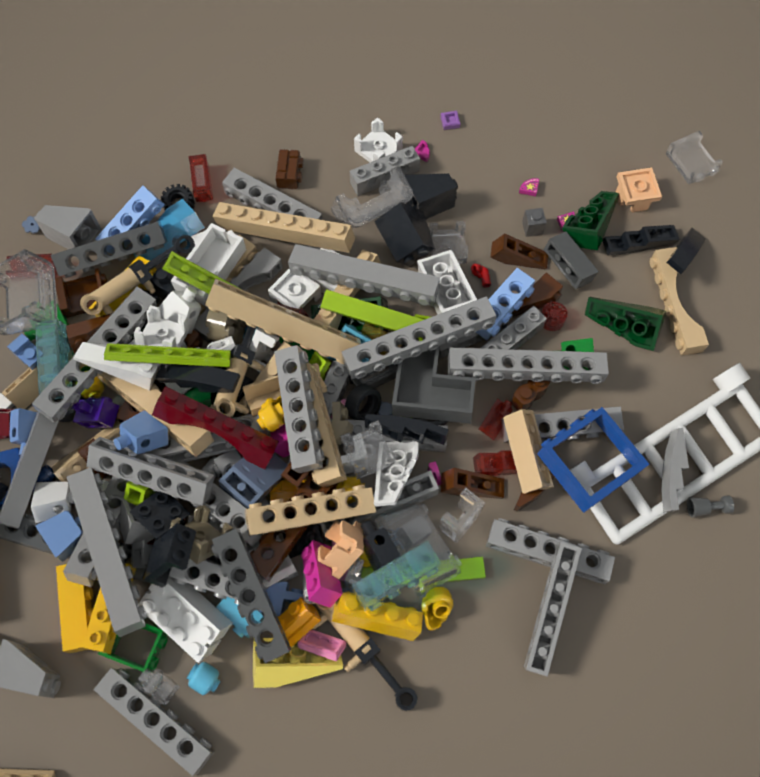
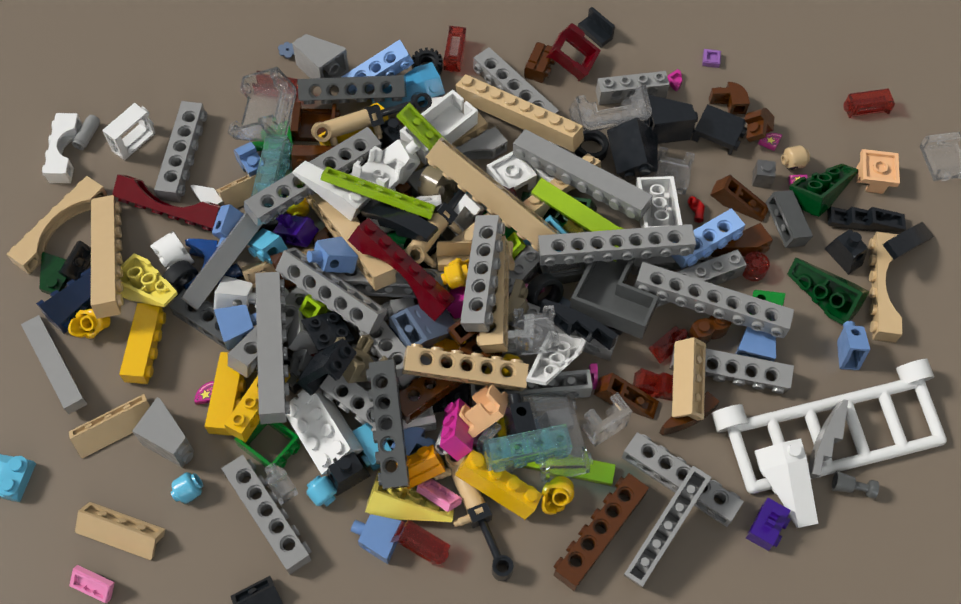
camera: 15 degrees right, 5 degrees down
(52, 613) = (204, 393): none -> dark pink tile
(63, 720) = (186, 487): none -> medium azure head
(70, 438) = (265, 244): none -> medium azure brick
(224, 651) = (347, 472): none -> black torso
(274, 706) = (377, 536): none -> medium blue torso
(316, 135) = (576, 38): none -> dark red piece
(319, 702) = (421, 542): none -> clear red window
(333, 119) = (597, 27): none -> black panel
(369, 230) = (598, 137): none -> black tyre
(377, 143) = (633, 60): white panel -> none
(480, 188) = (720, 128): none -> black panel
(483, 152) = (733, 95): none -> reddish brown brick
(510, 579) = (571, 575): none -> reddish brown brick
(515, 174) = (759, 124): none -> reddish brown brick
(558, 197) = (795, 157): none -> tan head
(566, 477) = (719, 416): blue window -> none
(579, 396) = (757, 345): none -> medium blue torso
(609, 124) = (869, 102): none -> clear red window
(634, 276) = (848, 251): none -> black torso
(643, 571) = (768, 524): none -> dark purple brick
(649, 518) = (789, 475): none -> white wedge
(667, 369) = (852, 346): none -> medium blue torso

